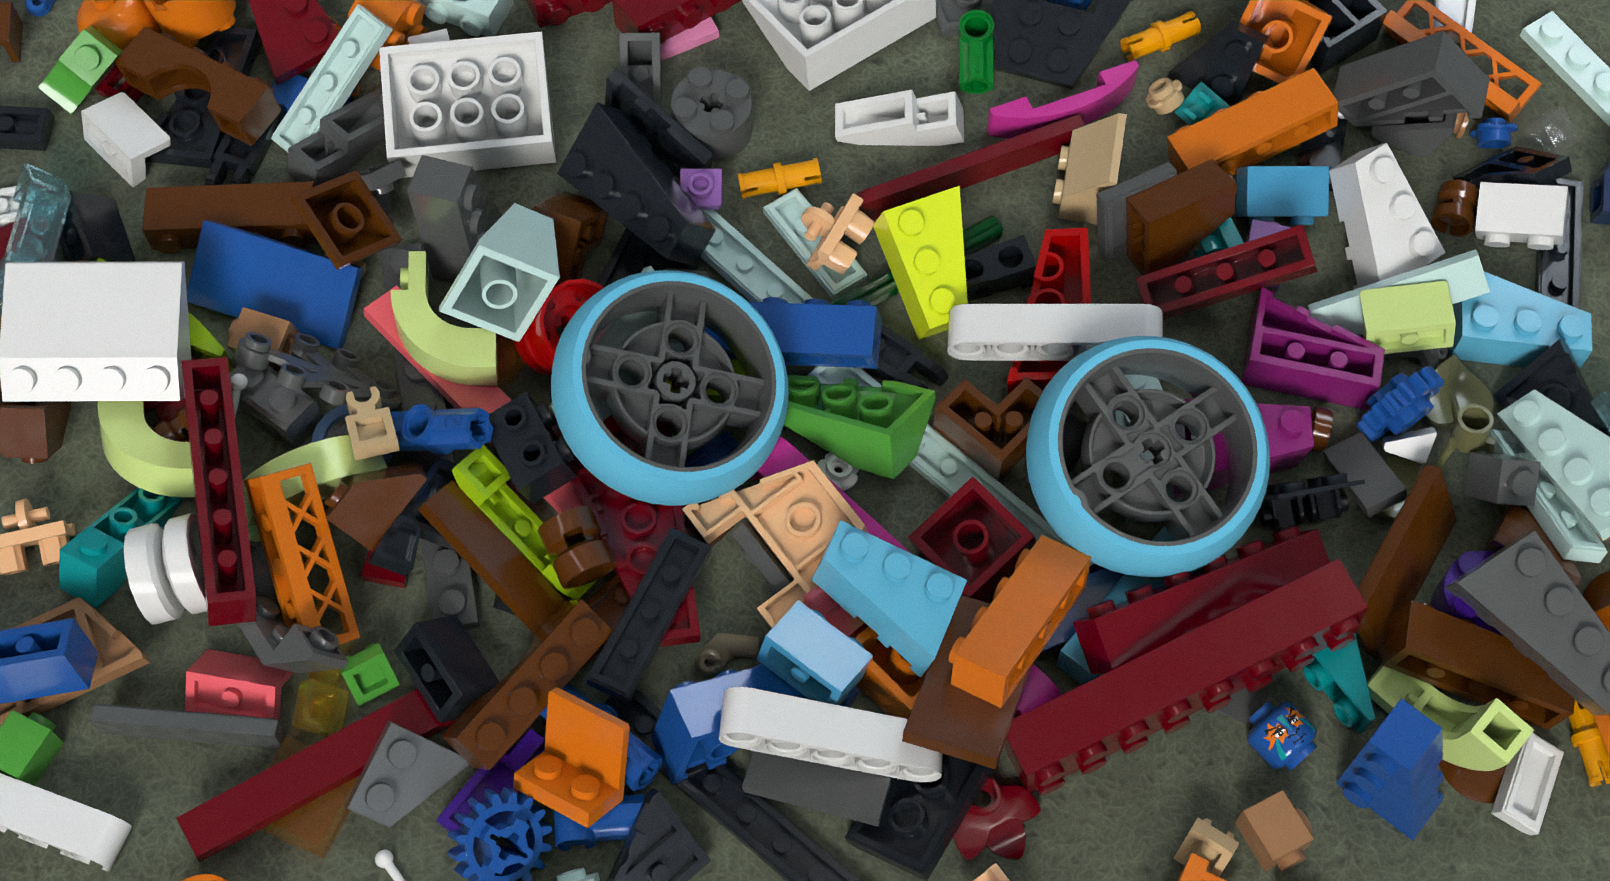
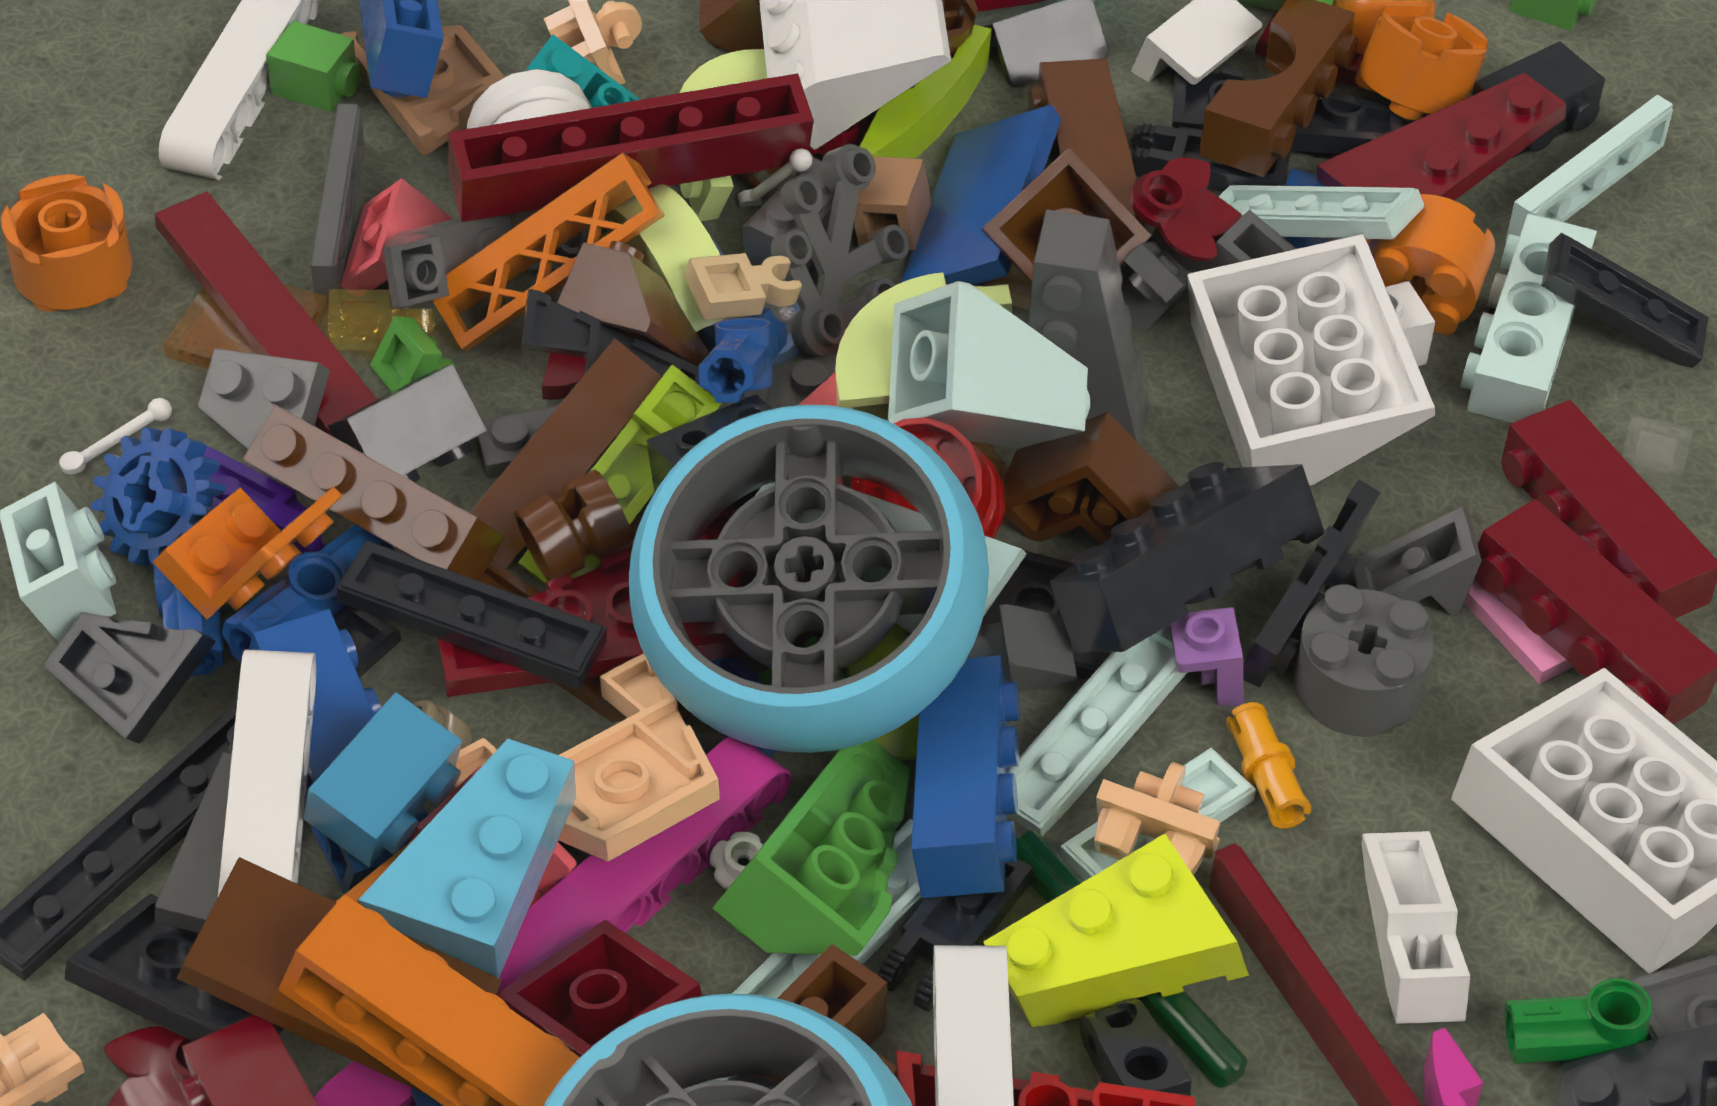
camera: 85 degrees right, 15 degrees down
(316, 155) = (1183, 207): none -> dark red plate

